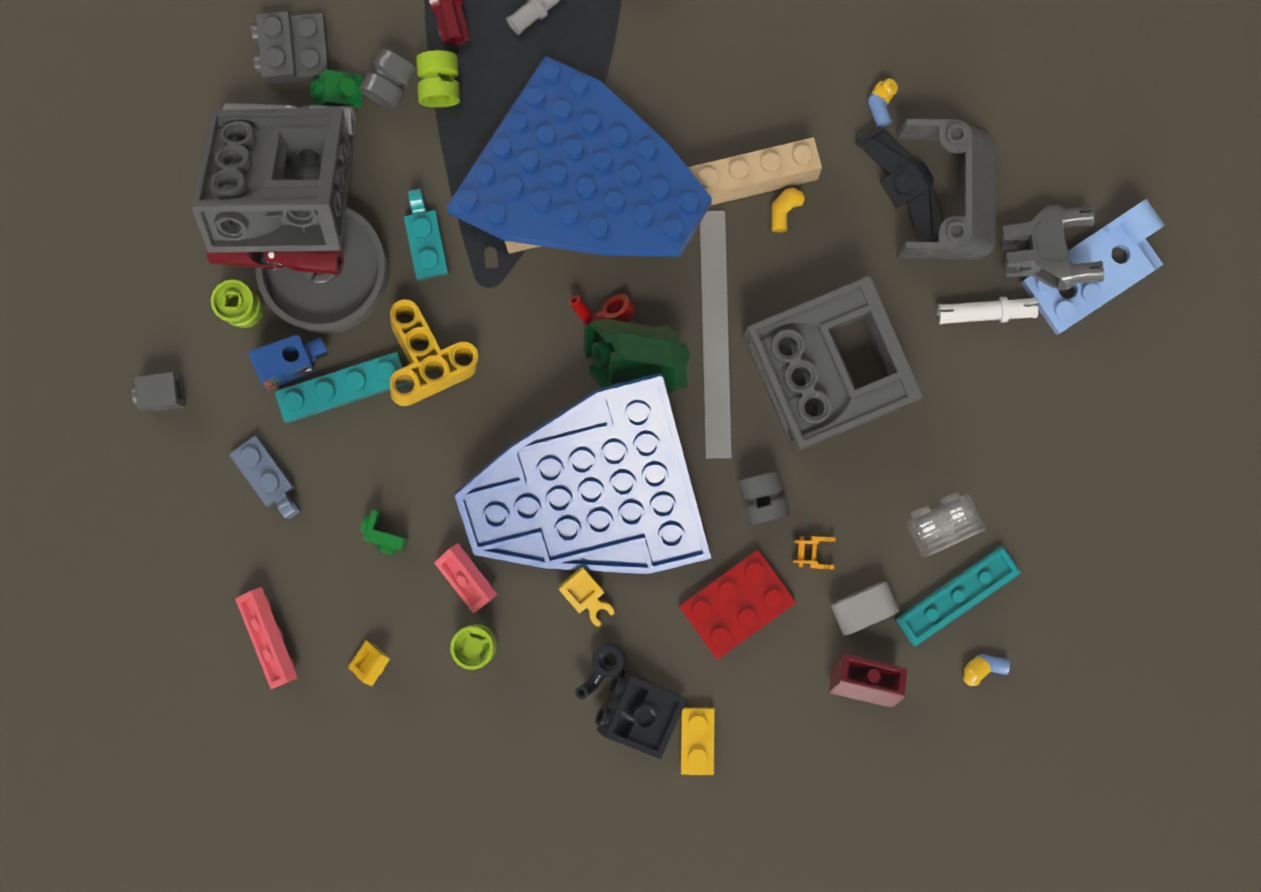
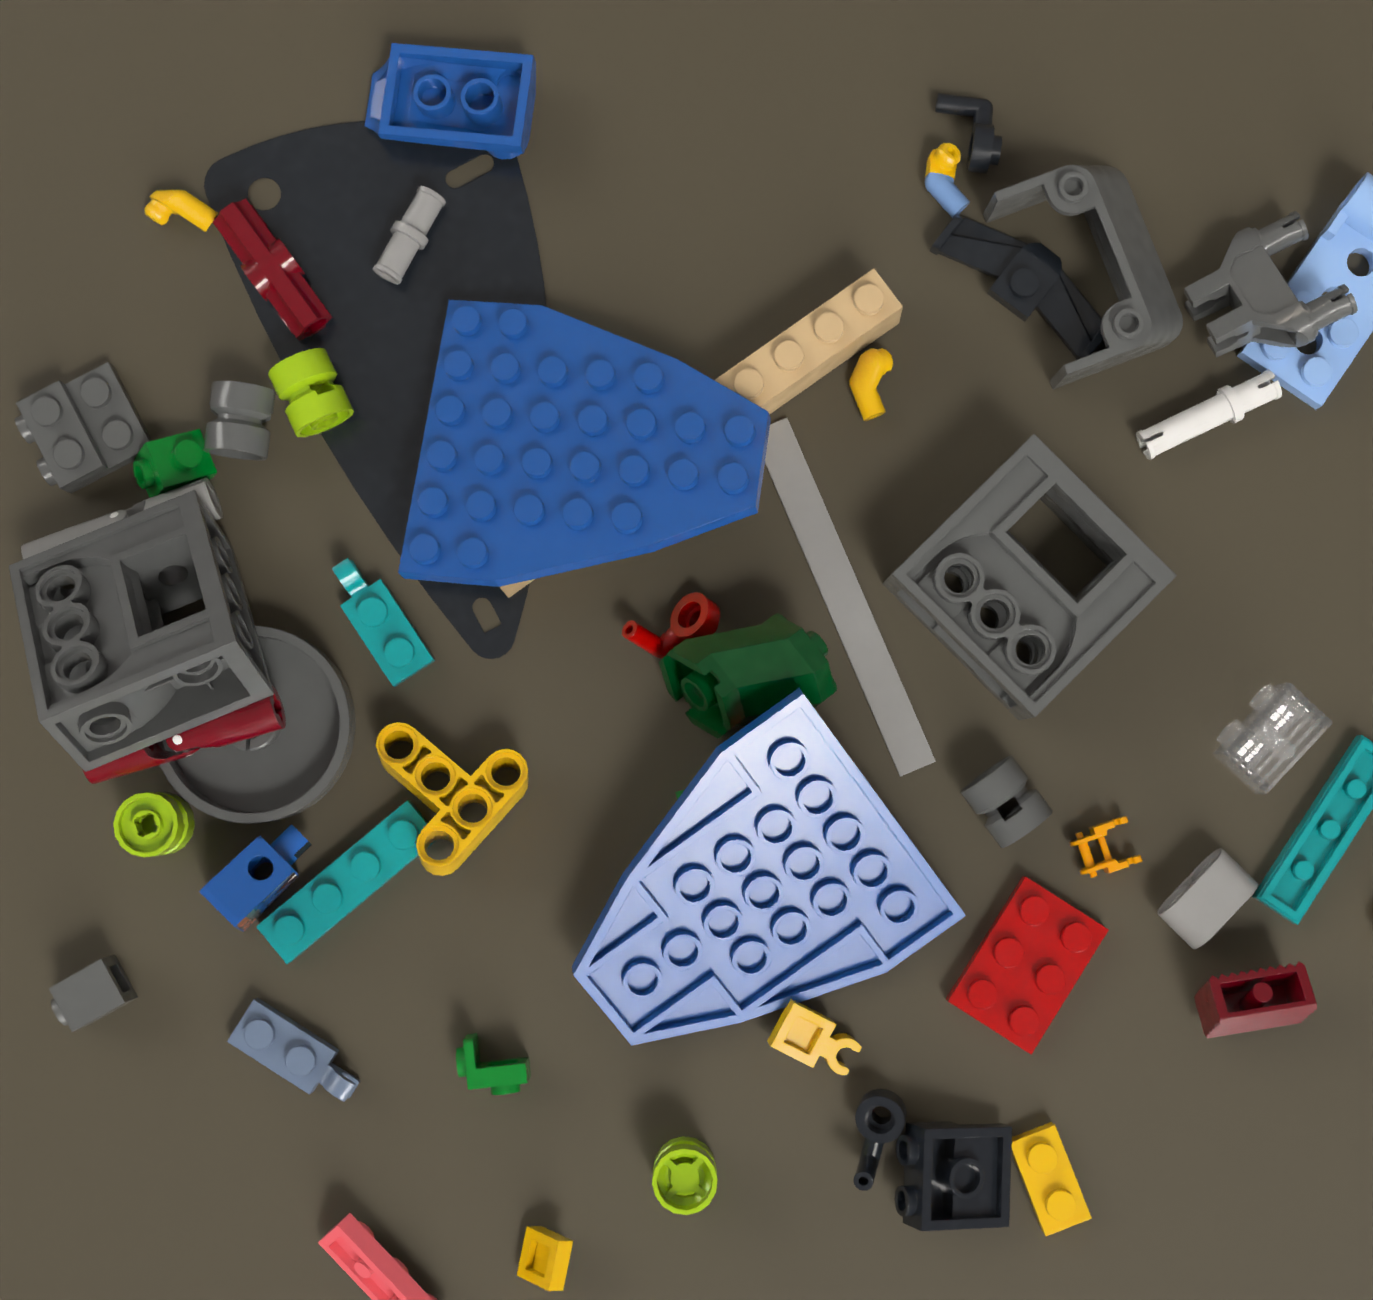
camera: 25 degrees left, 0 degrees up
(465, 578) = (633, 1082): coral plate -> none
(914, 90) = (983, 144): none -> black plate

